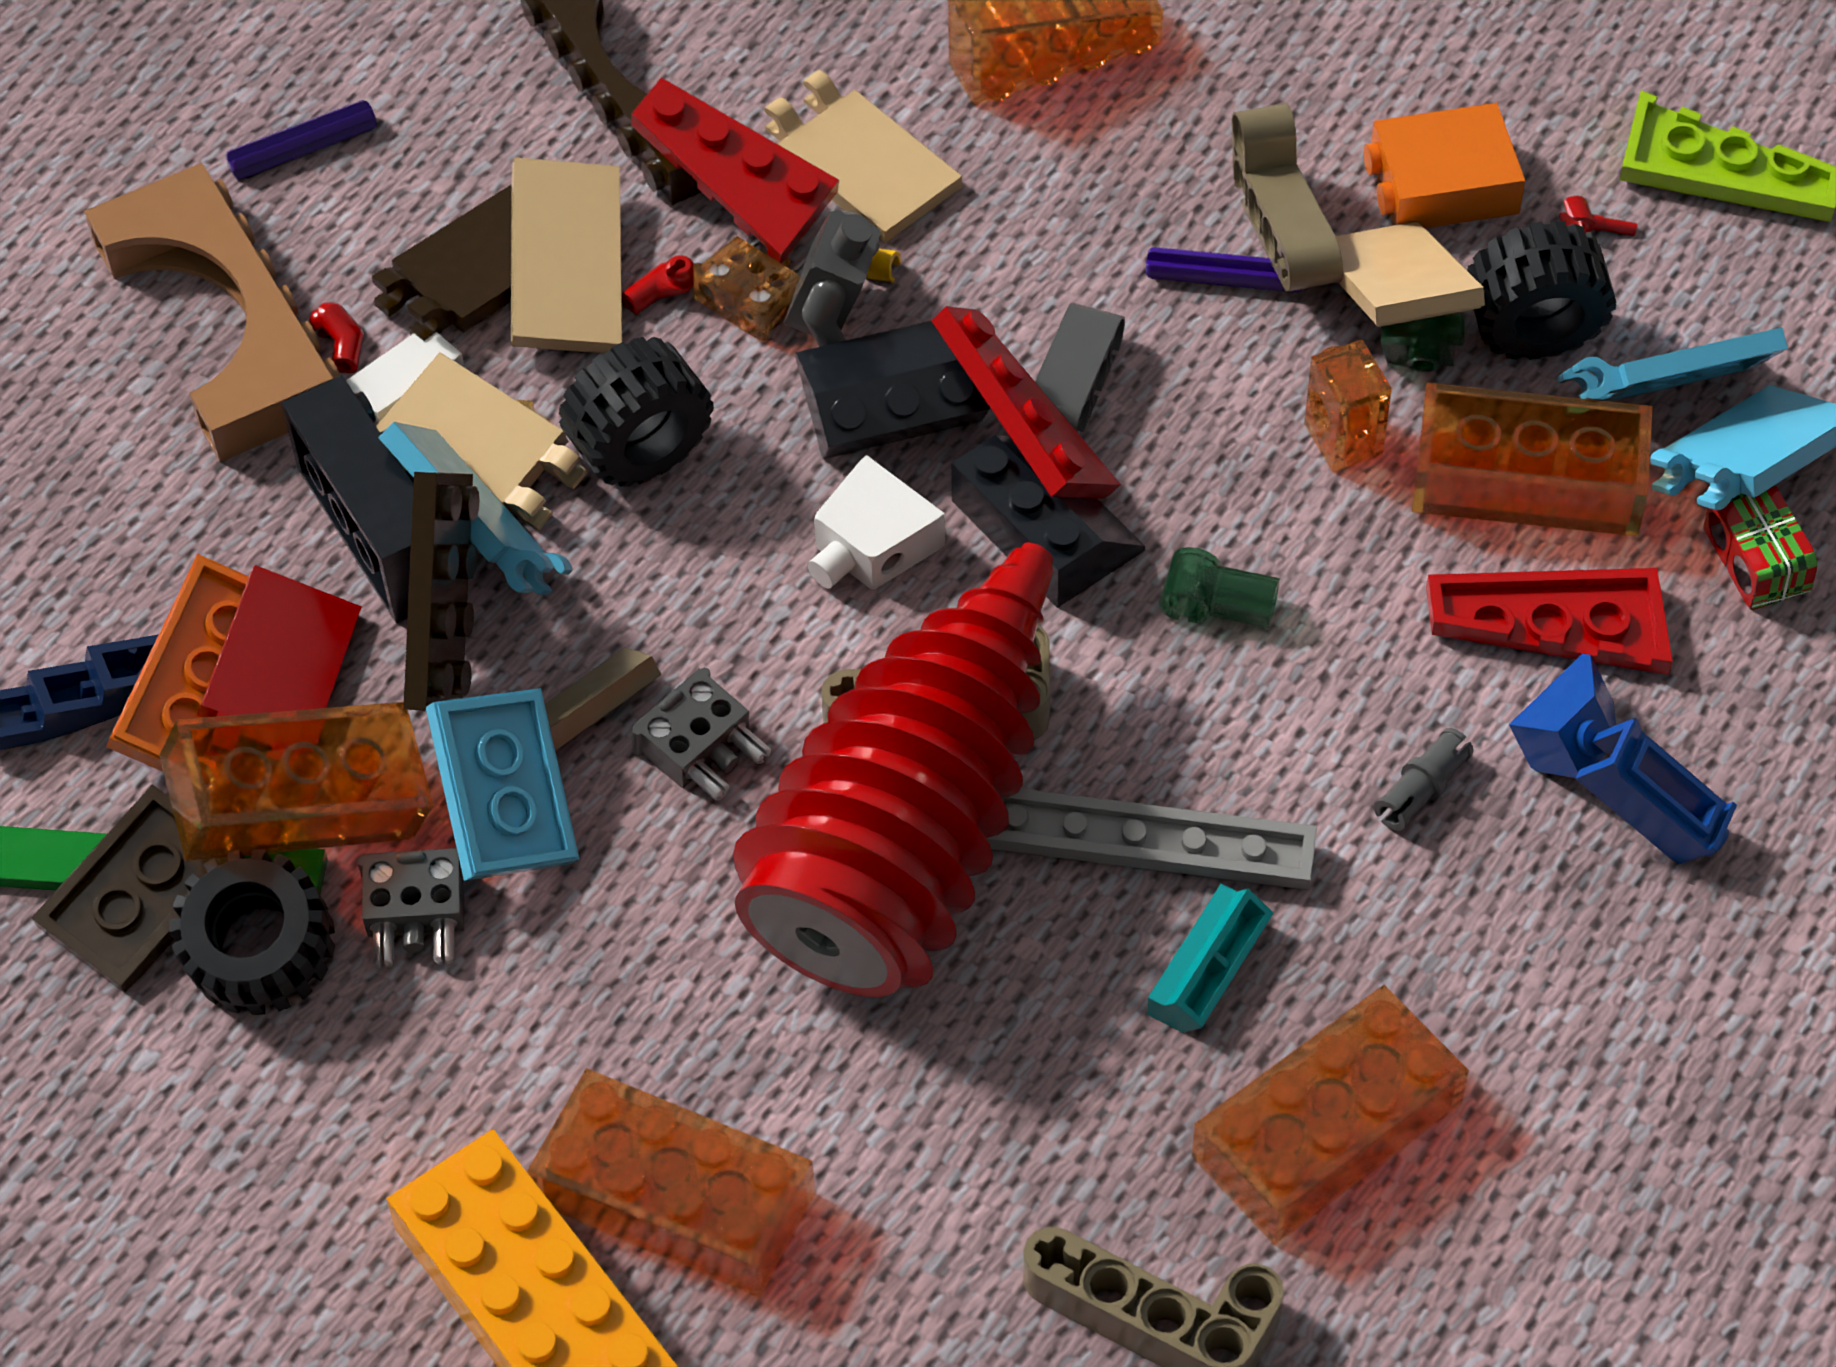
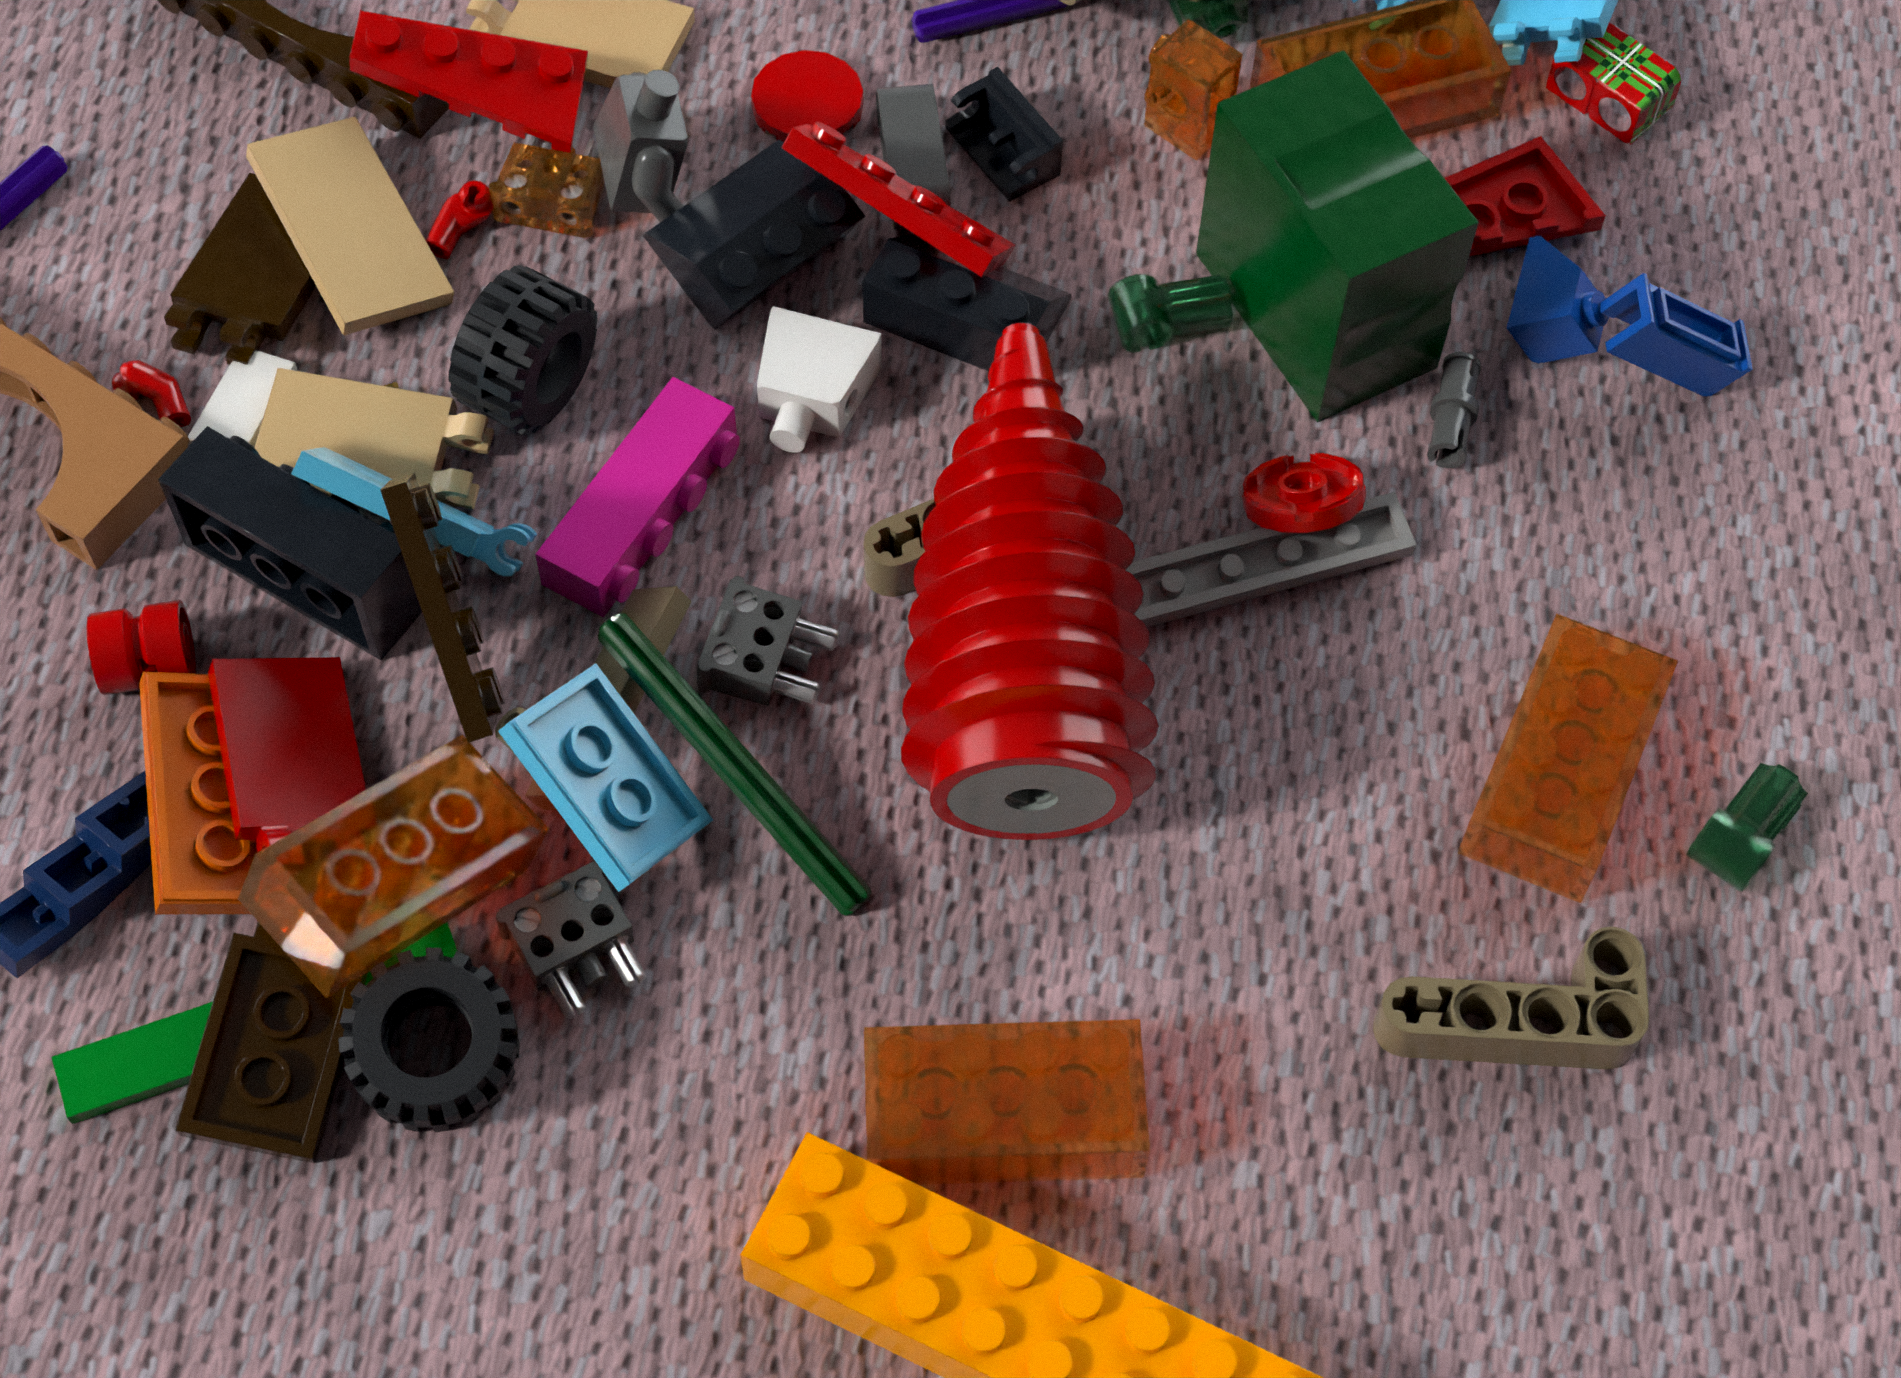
camera: 30 degrees left, 5 degrees up
(223, 534) = (123, 642): none -> red wheel
(615, 820) = (734, 764): none -> dark green axle
(670, 571) = (638, 497): none -> dark pink brick
(1017, 289) = (806, 90): none -> red tile
(1165, 386) = (1005, 135): none -> black hinge
(1208, 959) = (1369, 659): teal piece -> none
(1234, 796) = (1303, 494): none -> red tile
(1369, 577) = (1332, 234): none -> dark green tile
(1447, 1249) = (1742, 835): none -> clear green piece

